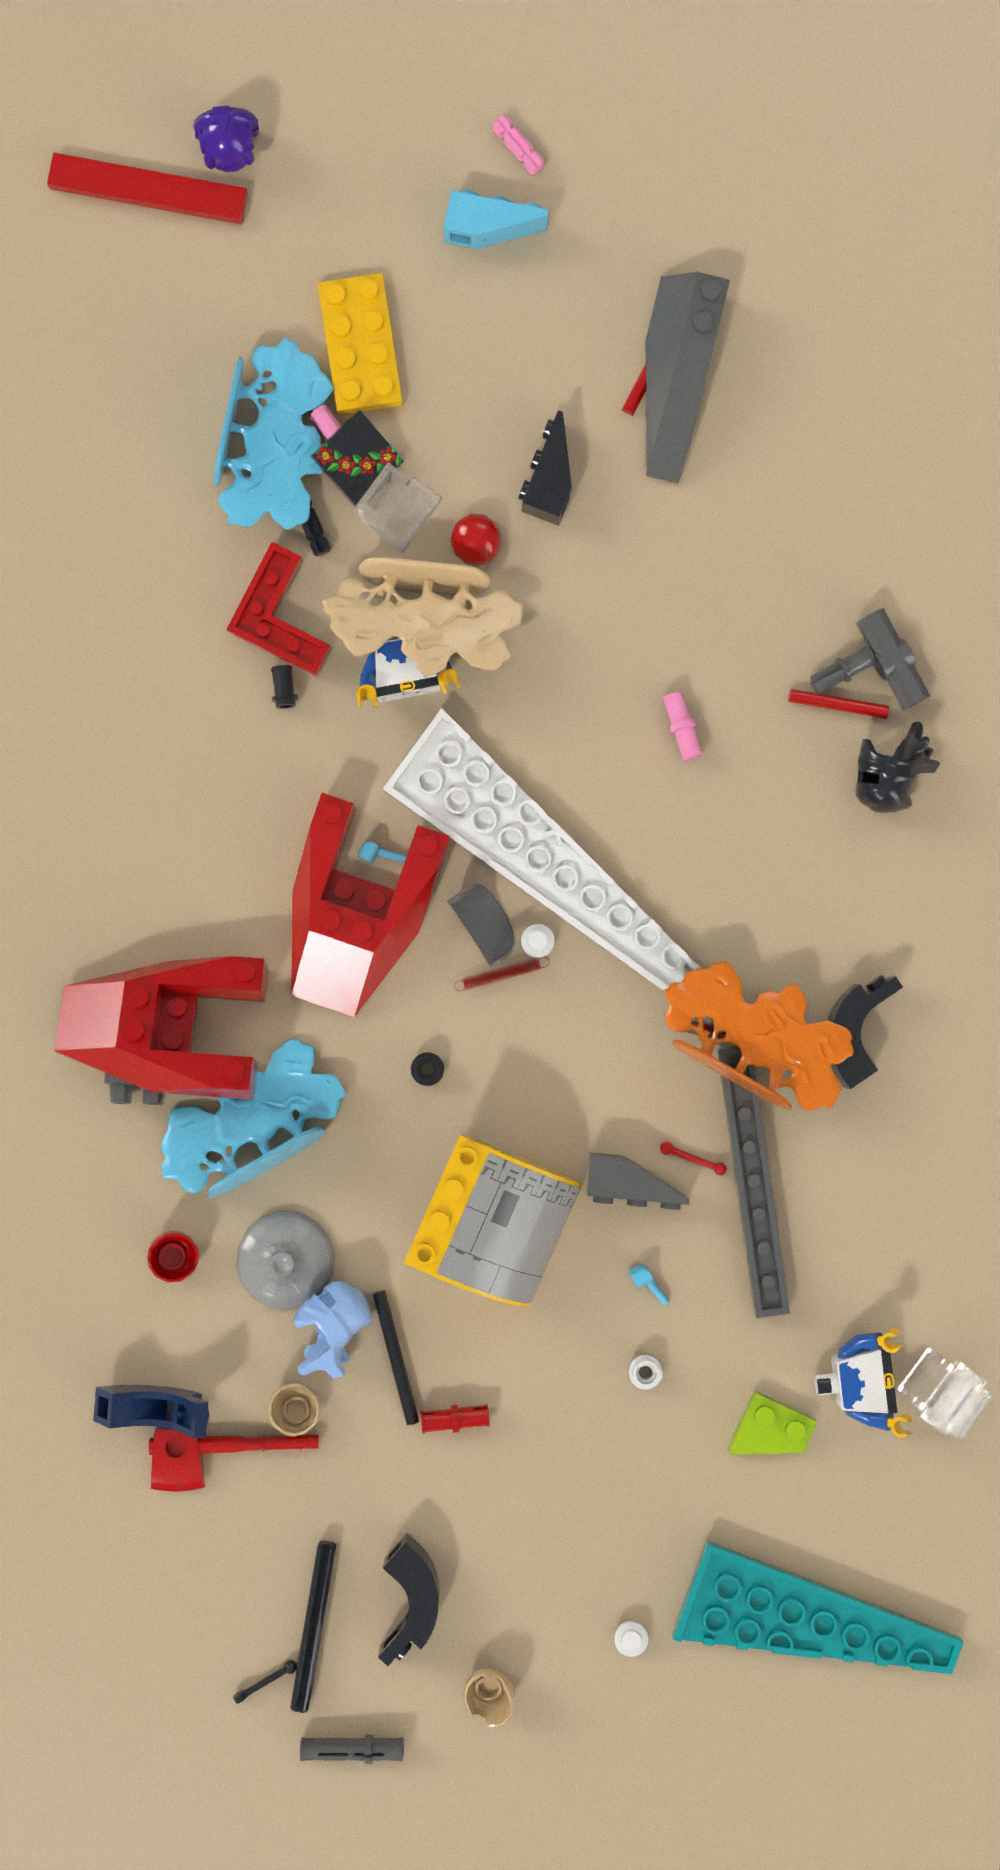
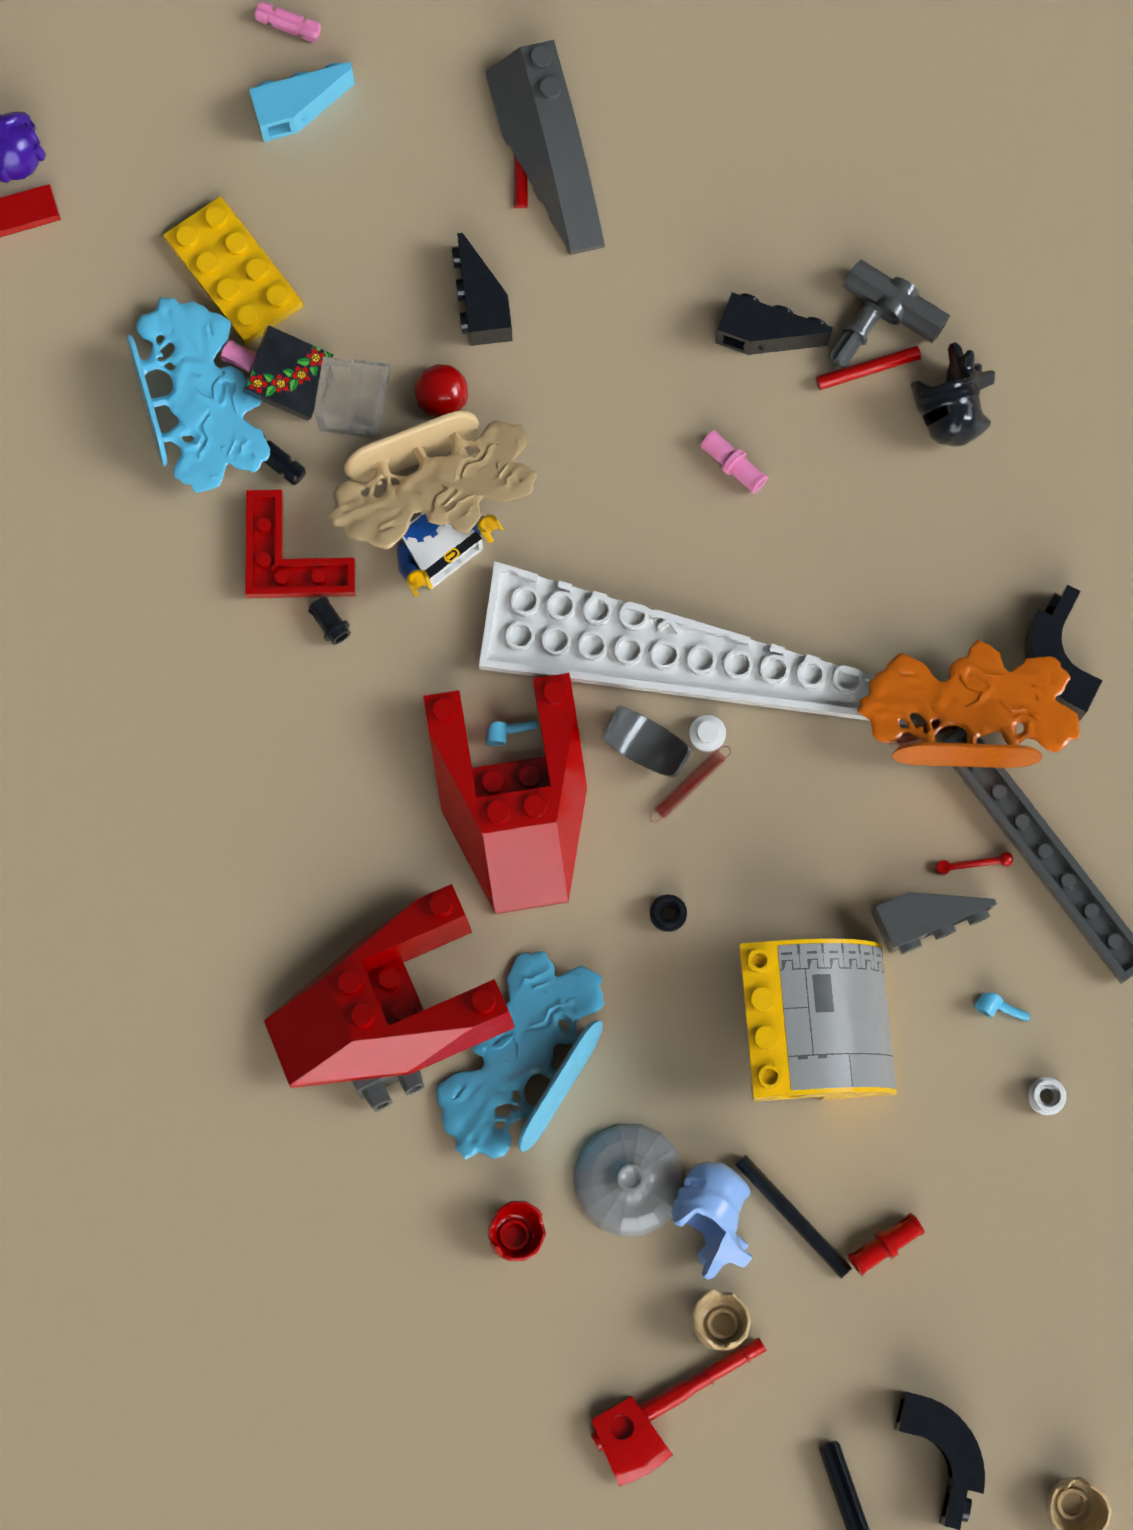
camera: 30 degrees left, 10 degrees down
(152, 1406) = (579, 1396): dark blue arch -> none
(767, 624) = (762, 328): none -> black slope

